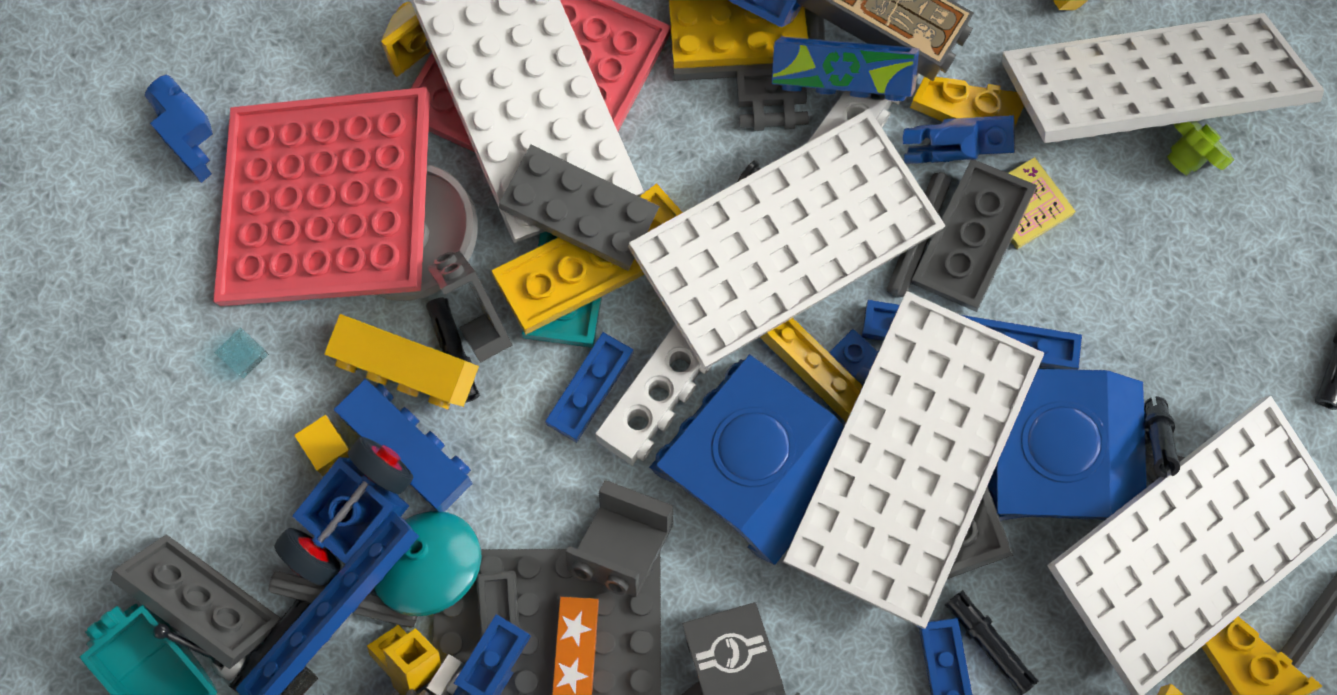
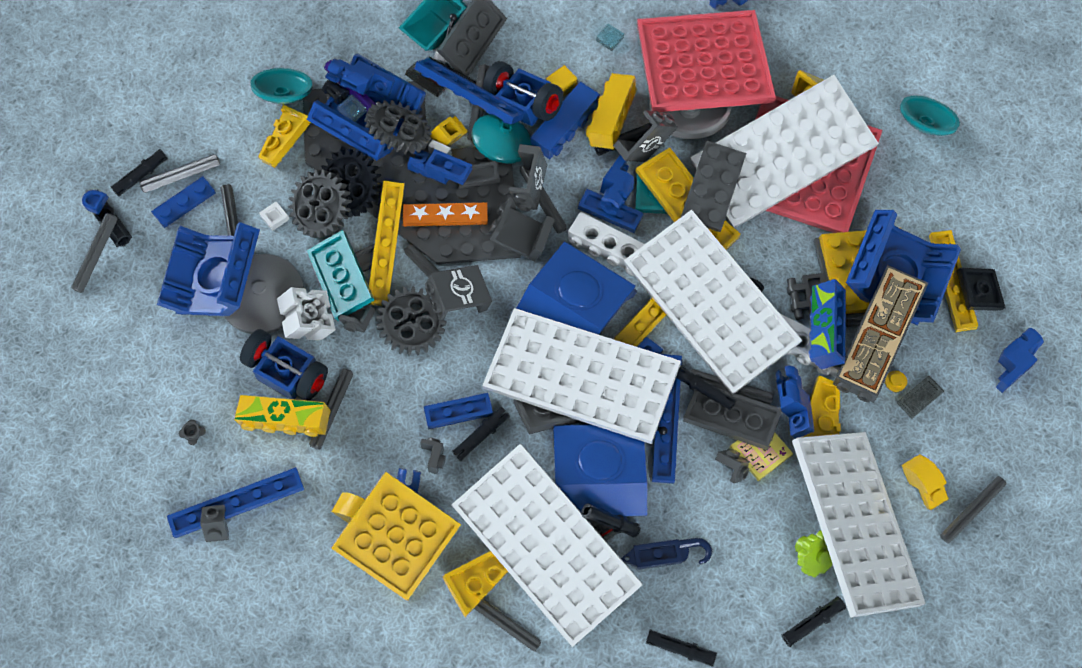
camera: 85 degrees right, 5 degrees down
(491, 501) = (535, 162): none -> dark grey panel
(548, 501) = (547, 205): none -> dark grey axle
(553, 367) = (616, 186): none -> blue plate
(923, 279) = (697, 383): none -> black pin
(1052, 241) = (733, 460): none -> dark grey bracket
(1195, 364) = (665, 553): none -> dark blue plate
(1270, 131) = (809, 624): none -> black pin

